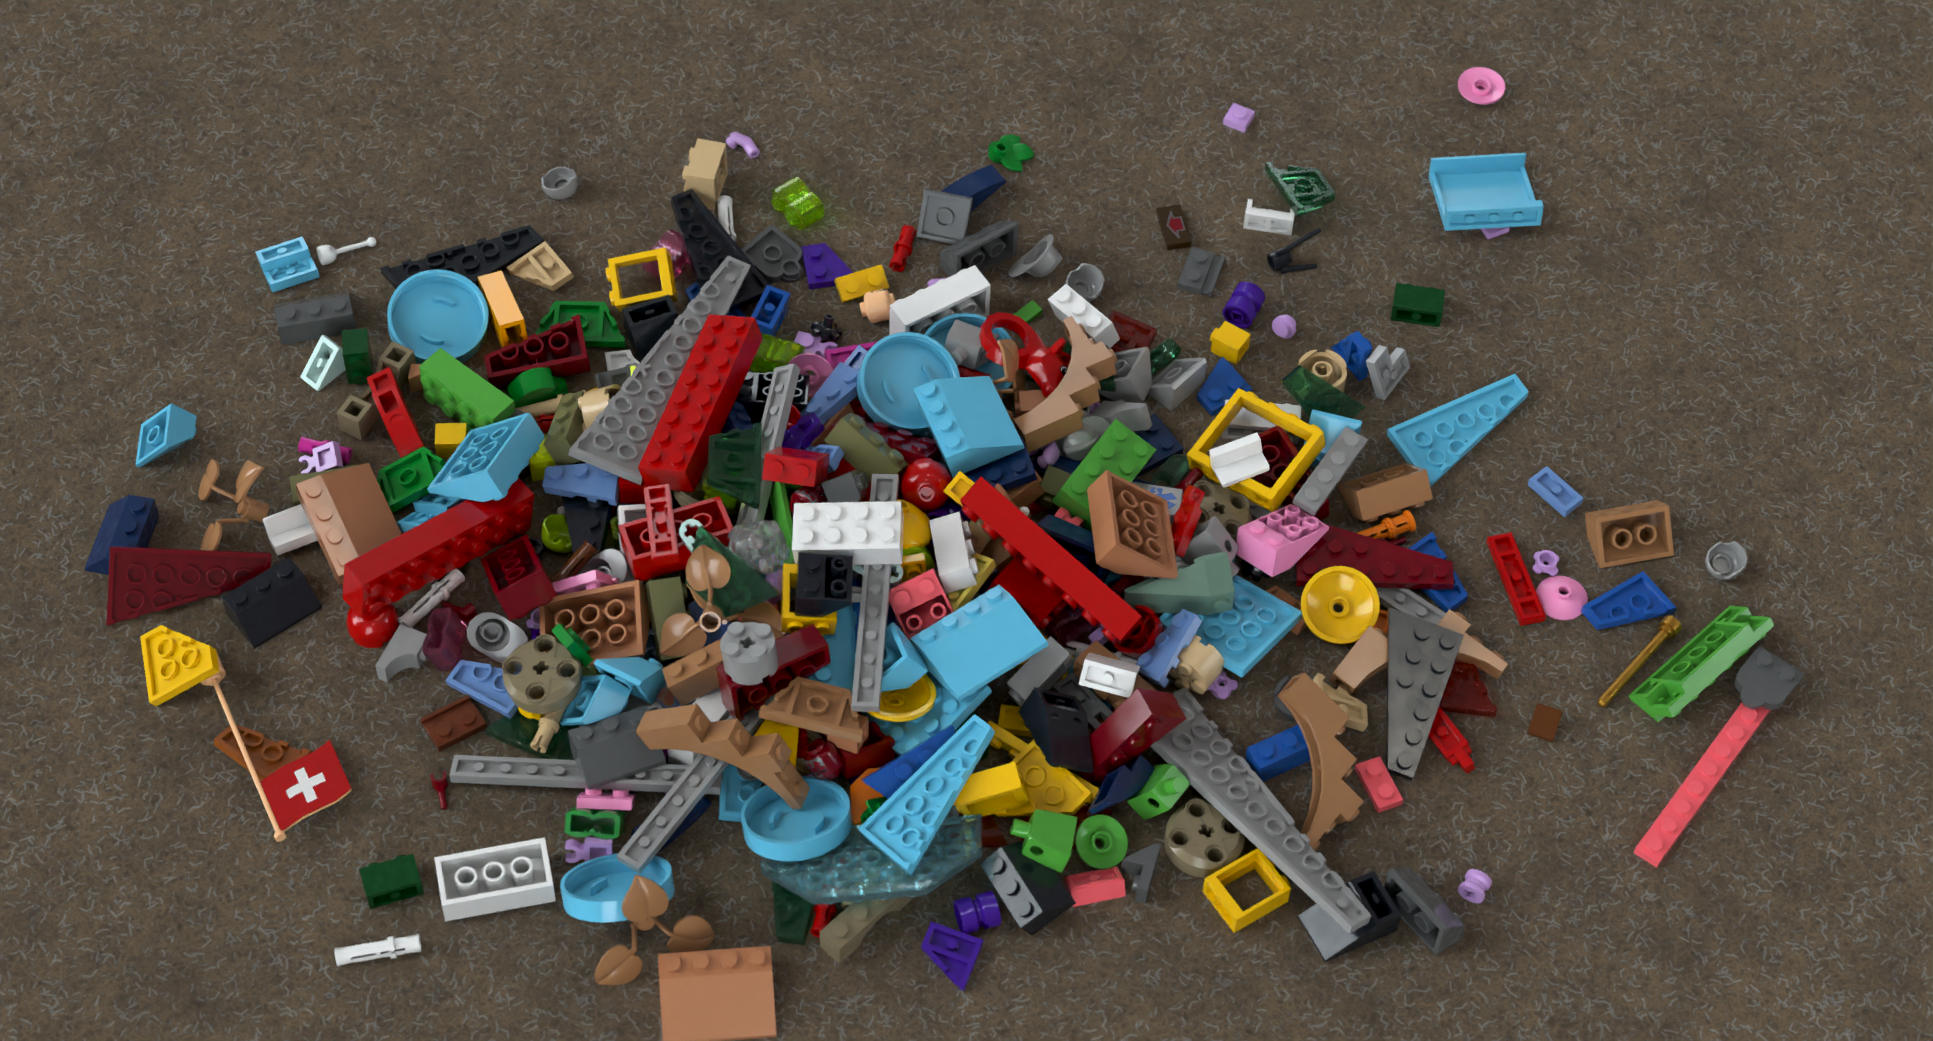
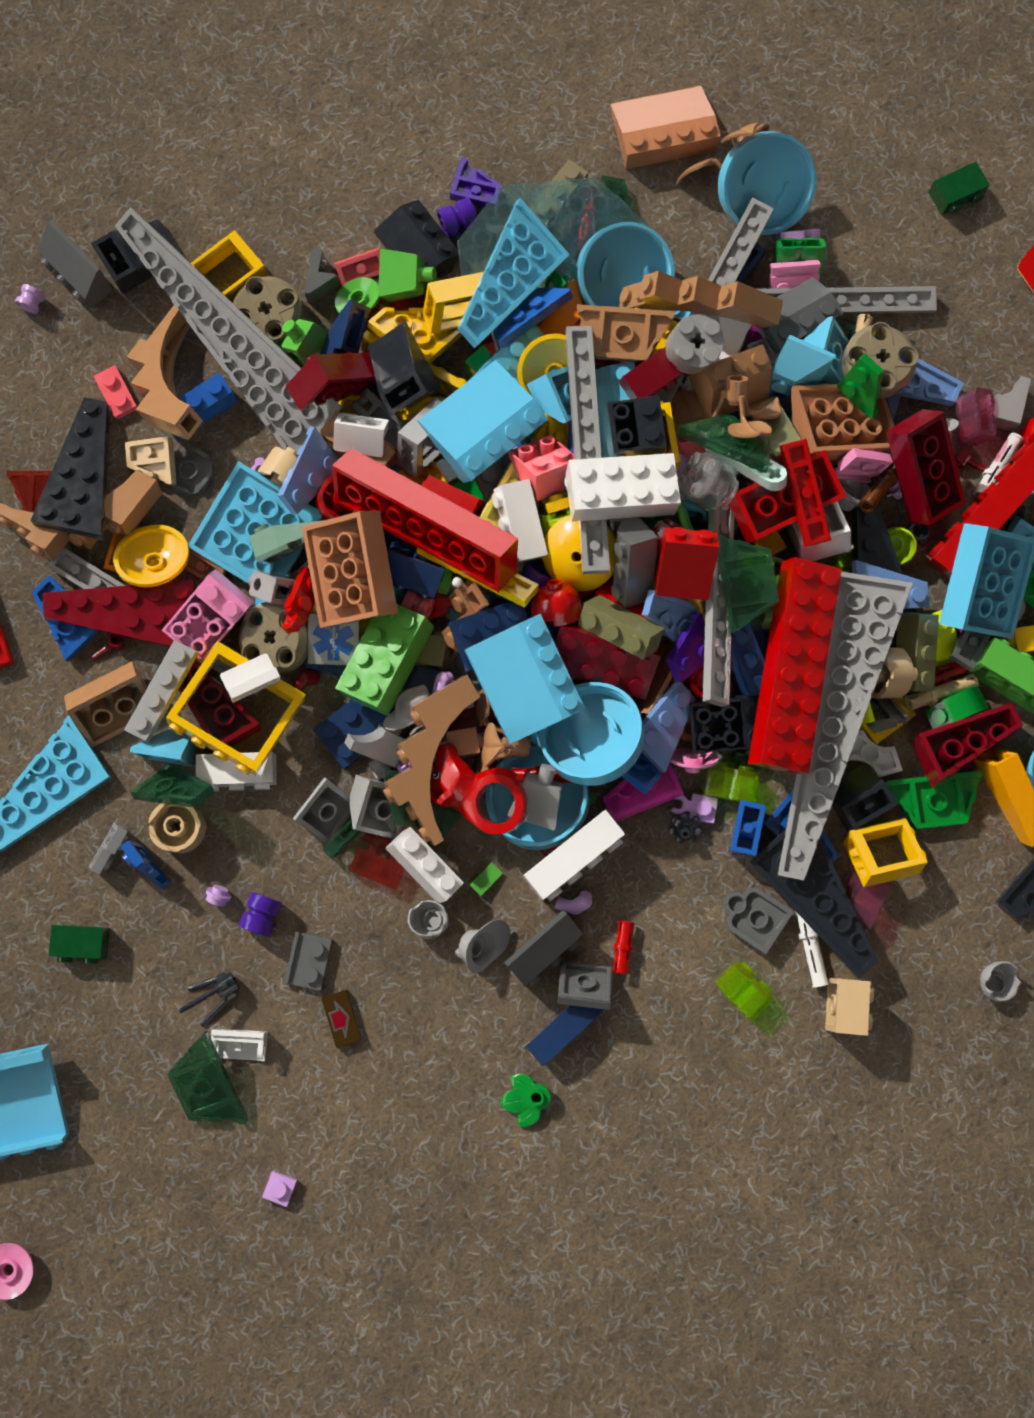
camera: 175 degrees right, 25 degrees up
(379, 949) = (944, 133): white pin -> none
(440, 786) = (939, 284): dark red hand -> none
(453, 723) = (945, 347): copper plate -> none
(494, 879) = (872, 194): white brick -> none
(541, 268) = (989, 868): tan wing -> none
(744, 141) = (816, 1073): lavender arm -> none
(822, 266) = (702, 913): dark purple wing -> none
(858, 283) = (659, 892): yellow plate -> none
(877, 305) = (637, 863): light nougat head -> none
(1173, 470) = (319, 703): clear green piece -> none
(1220, 387) = (277, 812): blue wing -> none
(1230, 342) = (273, 866): yellow brick -> none
(1390, 527) = (108, 661): orange pin -> none
(1450, 742) = (47, 434): red hinge -> none

